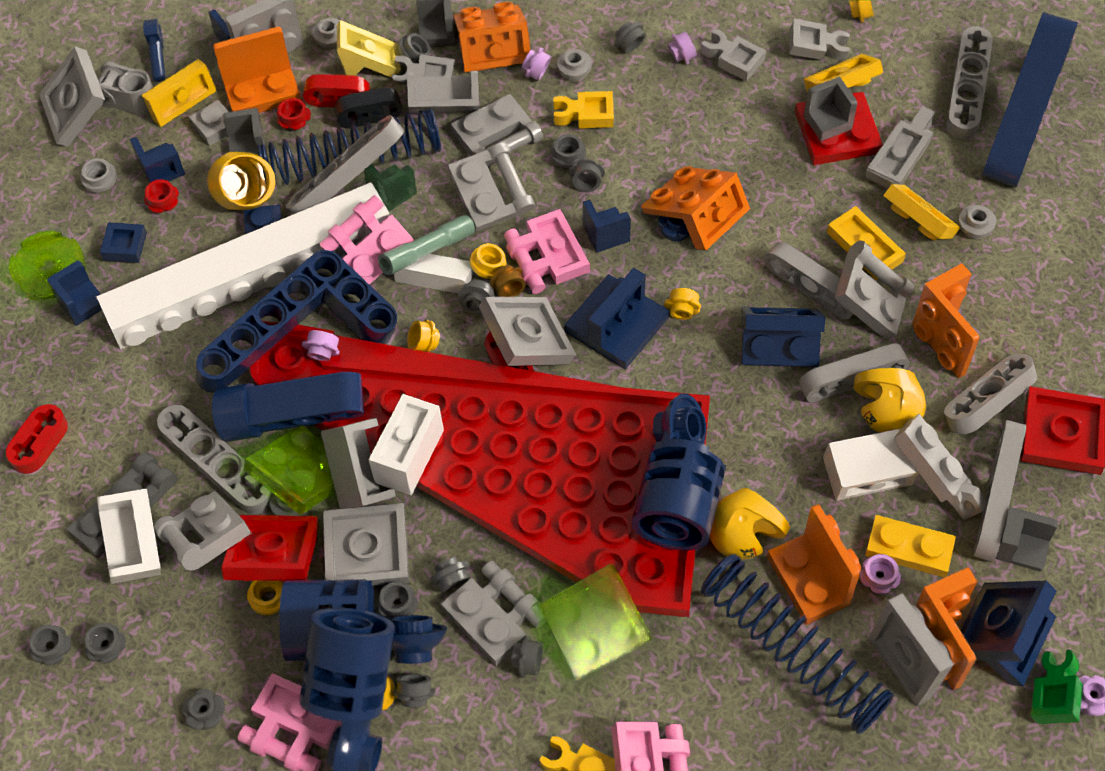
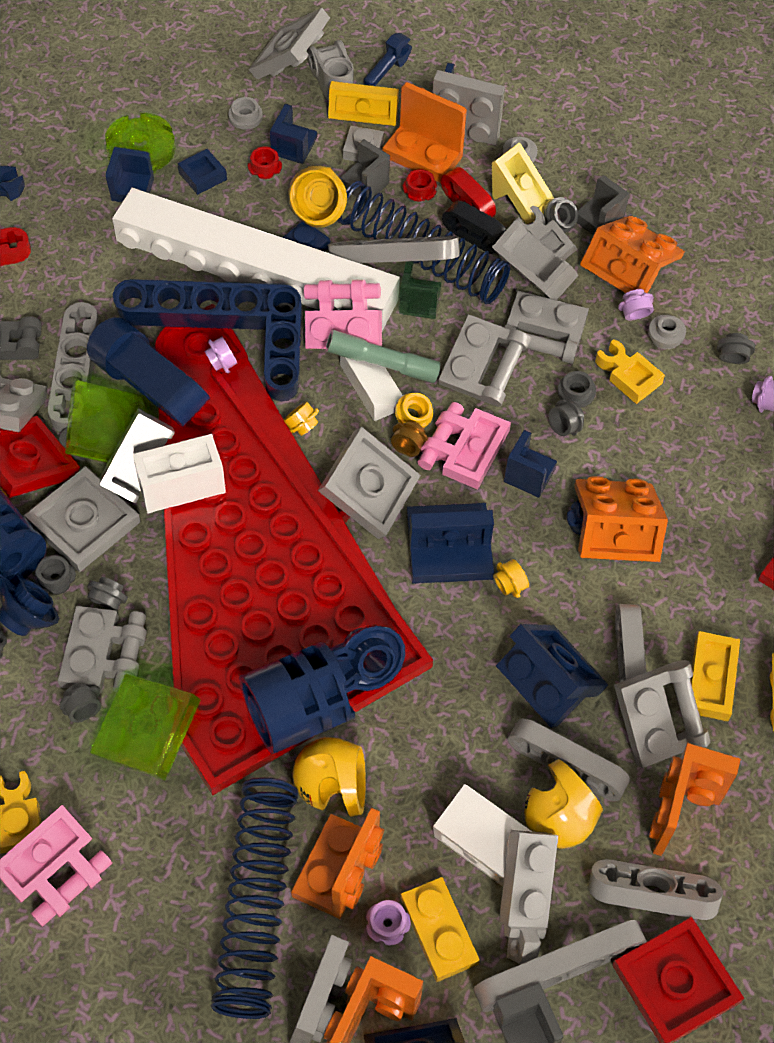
camera: 45 degrees right, 0 degrees up
(472, 295) = (375, 423): dark grey plate -> none

